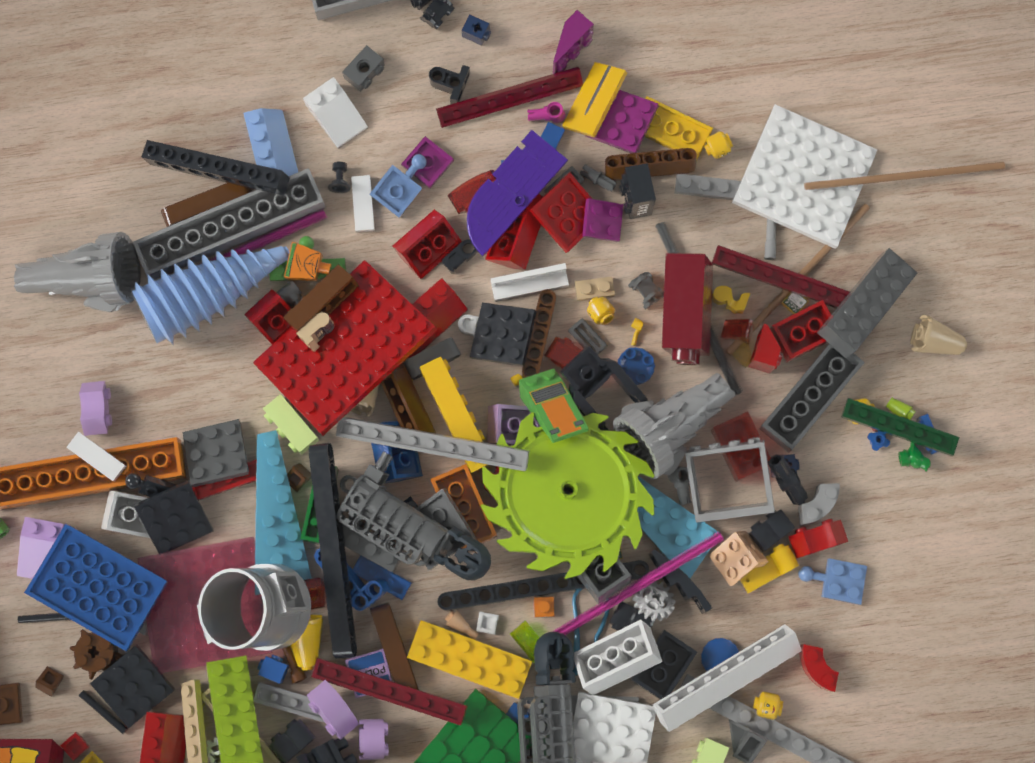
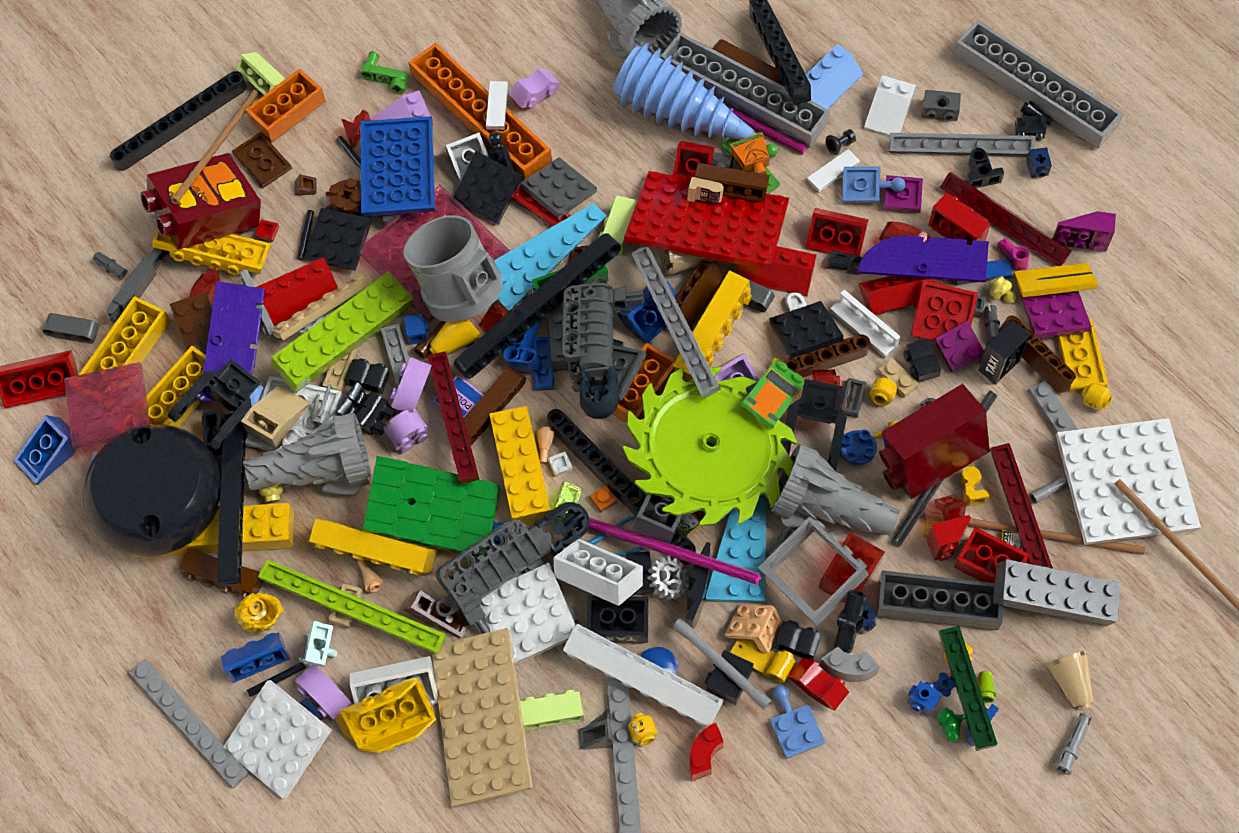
camera: 60 degrees right, 15 degrees down
(23, 602) = (353, 130): none -> clear red slope
(412, 79) = (961, 143): none -> light grey plate
(492, 138) = (957, 221): none -> red brick
(572, 147) = (1002, 287): none -> light yellow animal
(594, 259) = (922, 360): none -> black brick
(766, 618) = (721, 687): none -> black brick
(800, 598) = (754, 693): none -> light grey piece
(887, 461) = (924, 697): none -> blue brick
(988, 380) = (1070, 752): none -> light grey pin

